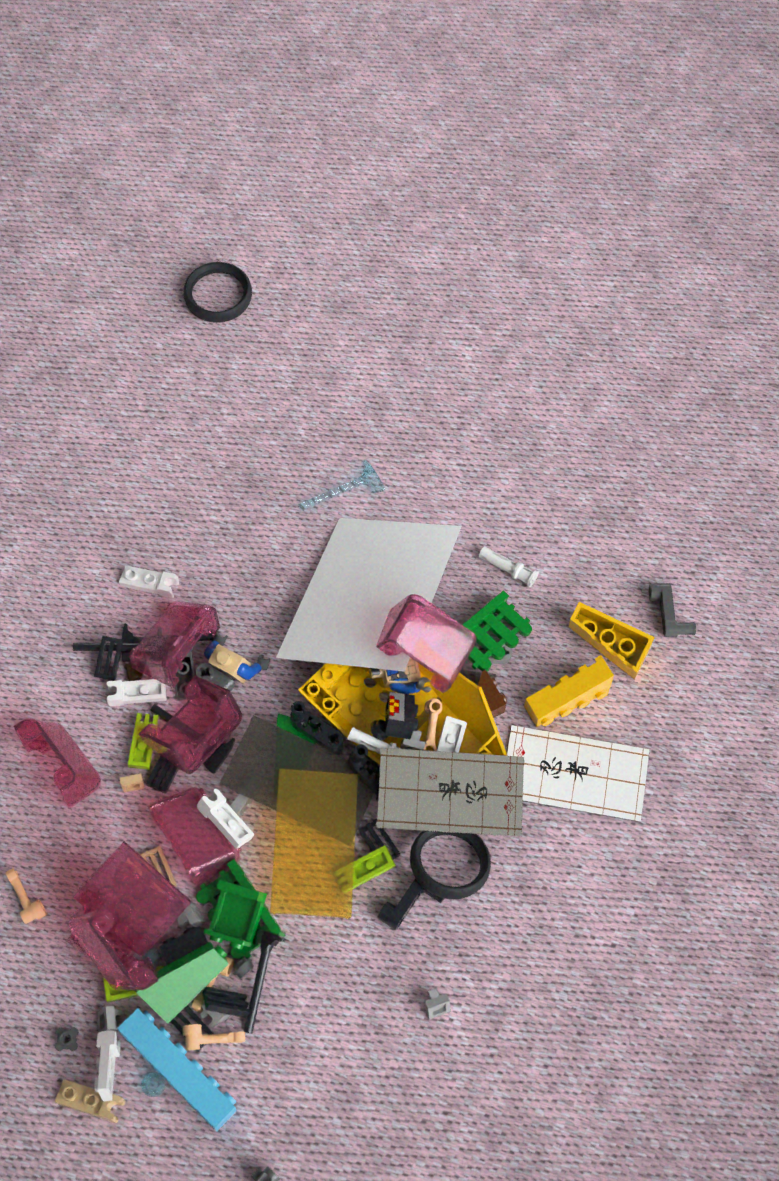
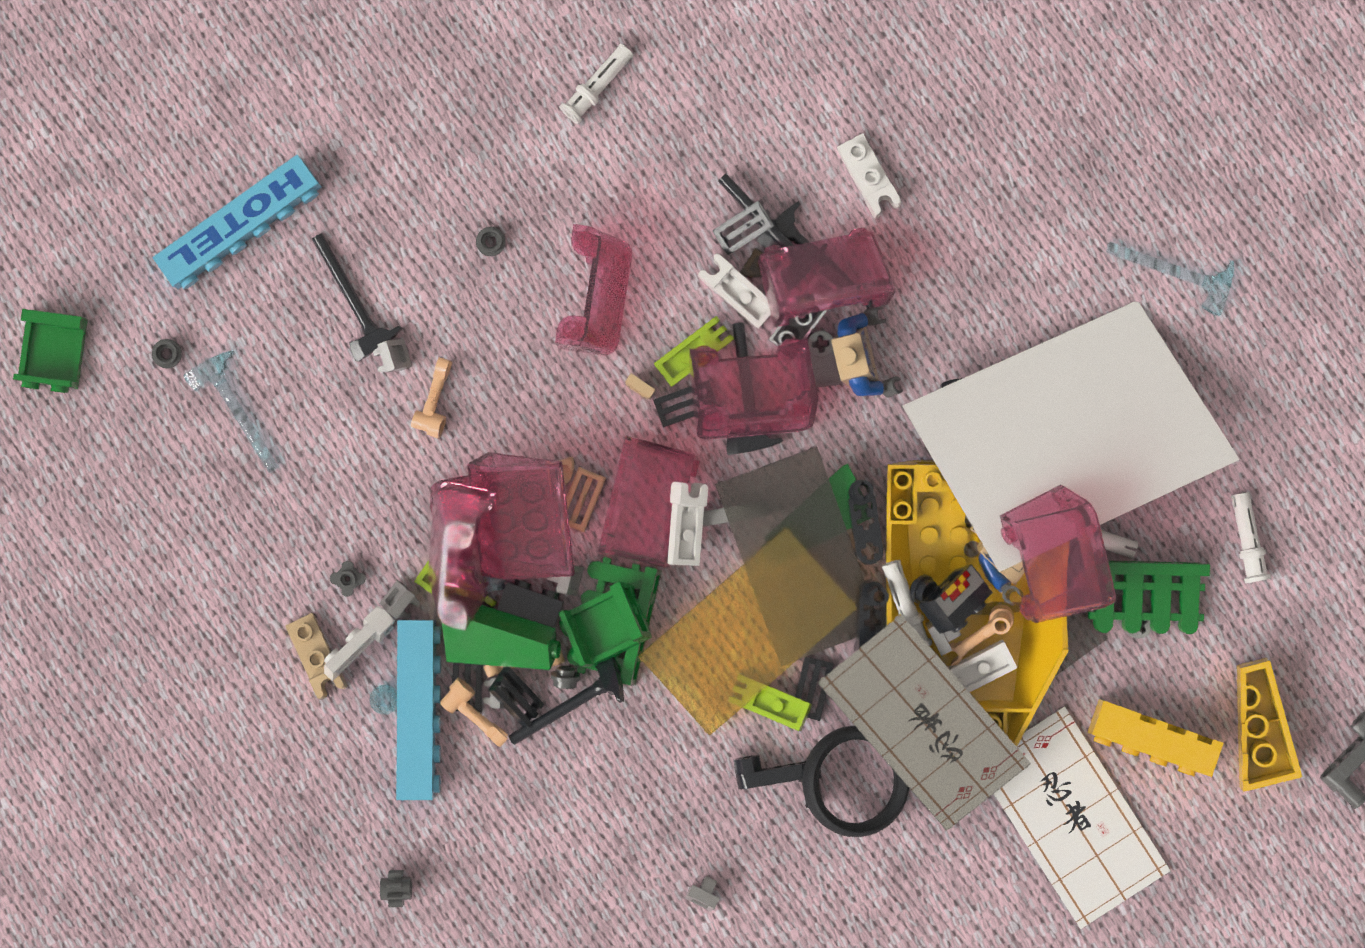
camera: 45 degrees right, 25 degrees up
(495, 699) = (1074, 668): reddish brown slope -> none

